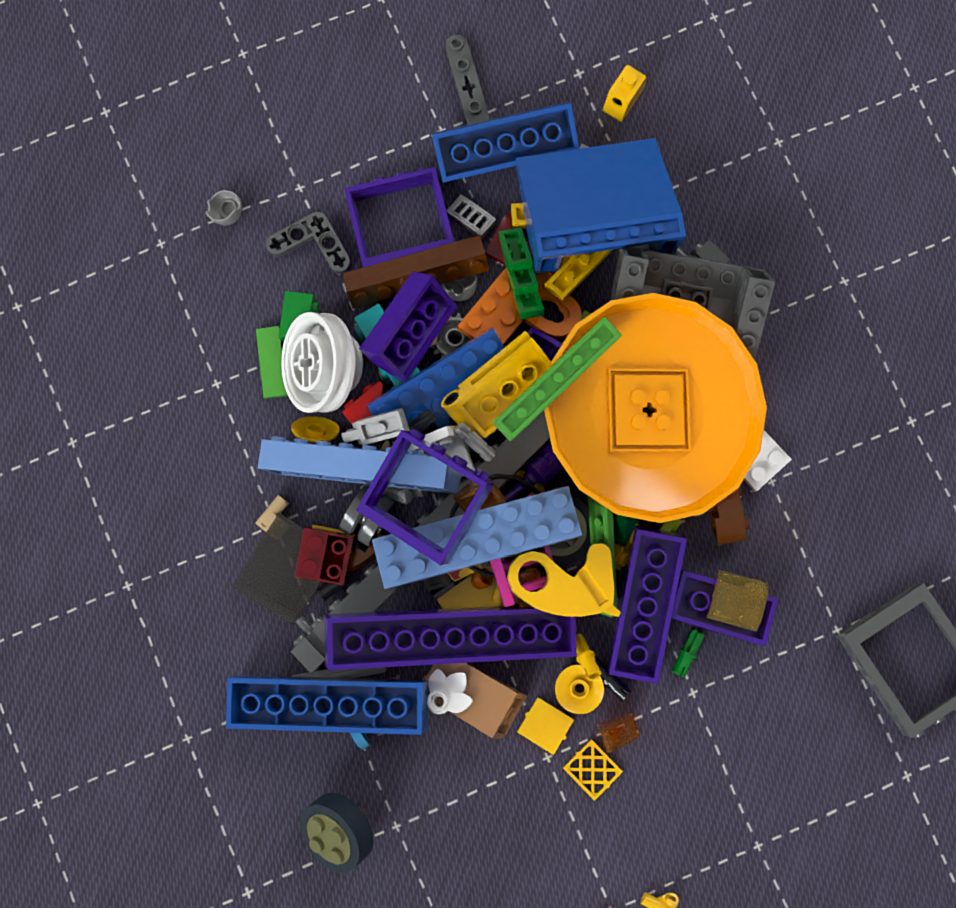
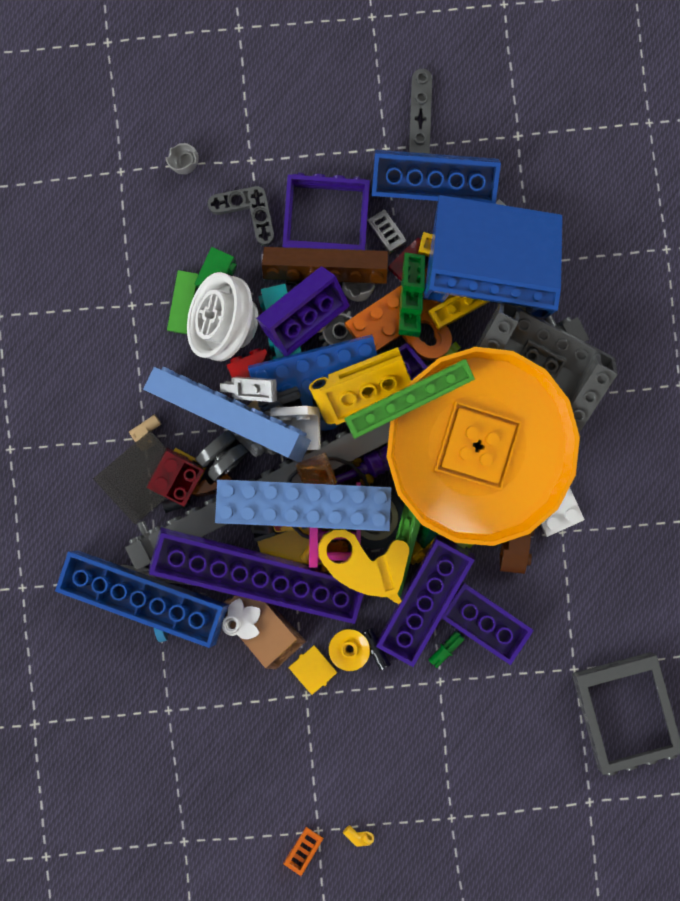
camera: 15 degrees right, 5 degrees up
(315, 429) = (201, 370): yellow dish -> none
(337, 832) = (118, 701): black wheel -> none
(369, 508) = (242, 480): dark purple window -> none
(475, 441) = (327, 425): light grey axle -> none
(480, 581) = (296, 538): orange hinge -> none
(586, 659) = (362, 628): yellow axle -> none
(606, 784) = (352, 710): yellow window -> none
(618, 732) = (369, 694): clear orange slope -> none
(626, 89) = (551, 164): yellow torso -> none
(738, 601) = (500, 622): clear yellow slope -> none

